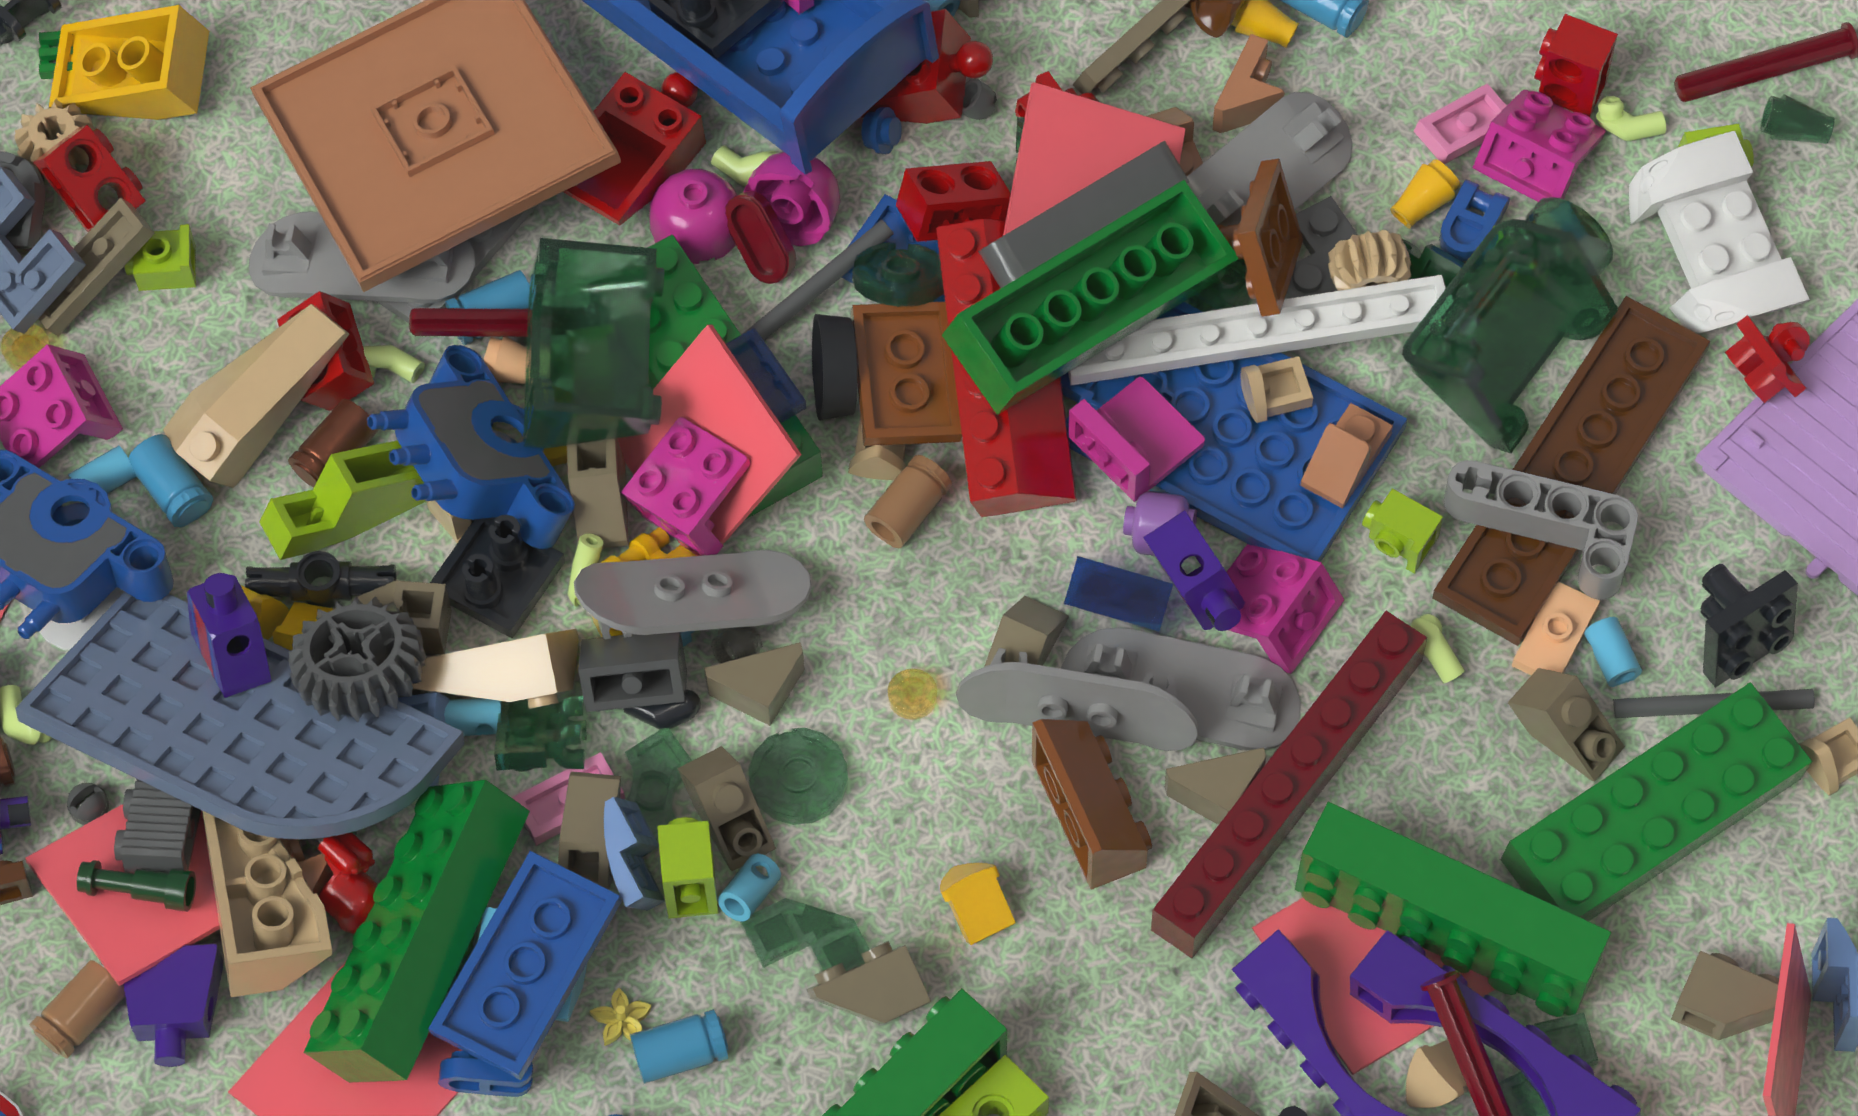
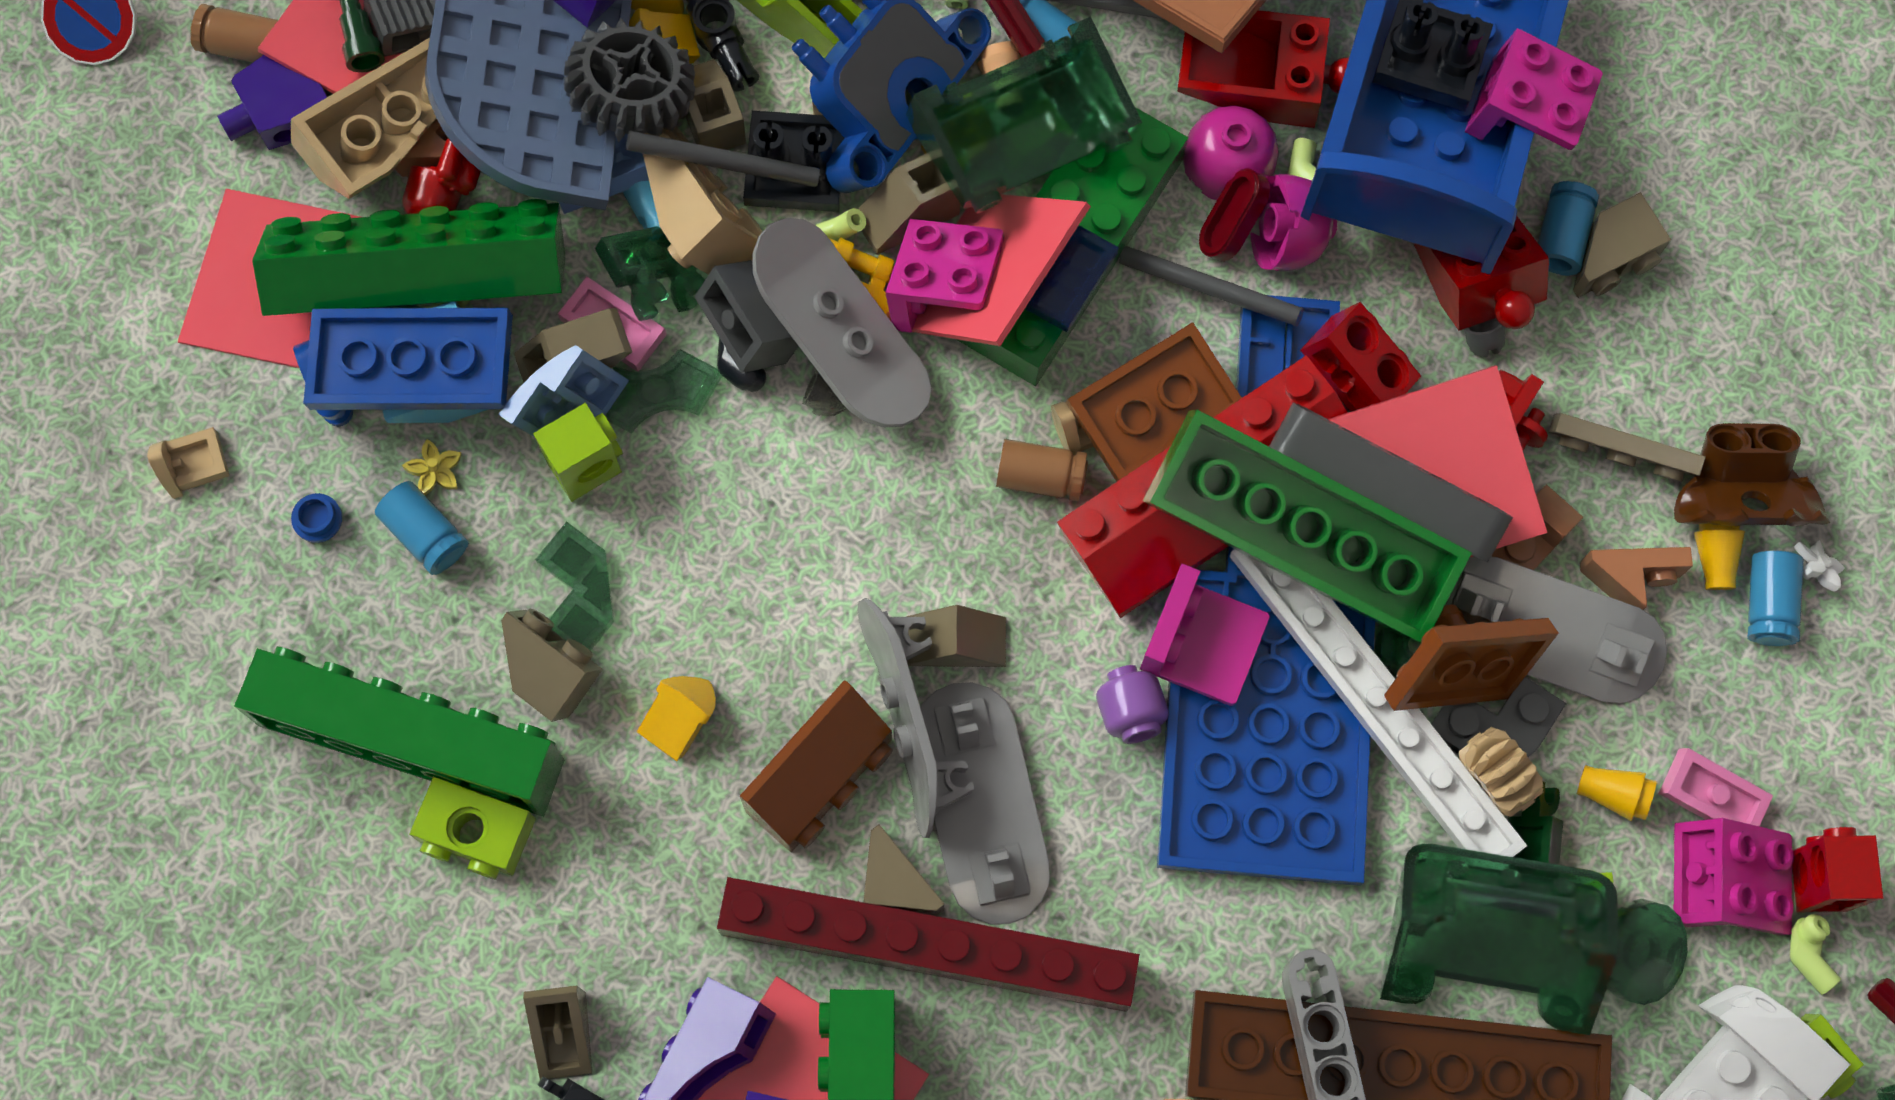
camera: 60 degrees right, 10 degrees up
(476, 618) = (722, 159): none -> dark grey bar
(726, 801) = (664, 457): dark tan slope -> none
(749, 888) = (597, 514): medium azure piece -> none
(757, 682) = (798, 430): dark tan slope -> none
(799, 792) = (740, 519): clear green tile -> none
(834, 366) = (1131, 335): black tyre -> none
(881, 130) = (1405, 267): blue plate -> none
(898, 275) = (1250, 346): clear green tile -> none
(912, 694) = (858, 565): clear yellow tile -> none
(1118, 594) = (1036, 699): clear blue brick -> none
(1208, 588) = (1084, 760): dark purple torso -> none
(1275, 388) = (1326, 743): tan tile -> none
(1285, 602) = (1107, 845): dark pink bracket -> none
(1345, 454) = (1291, 842): nougat slope -> none
(1403, 528) = (1246, 930): lime brick -> none
(1437, 648) = (1147, 1003): yellowish green arm -> none
(1465, 230) = (1598, 848): blue plate -> none

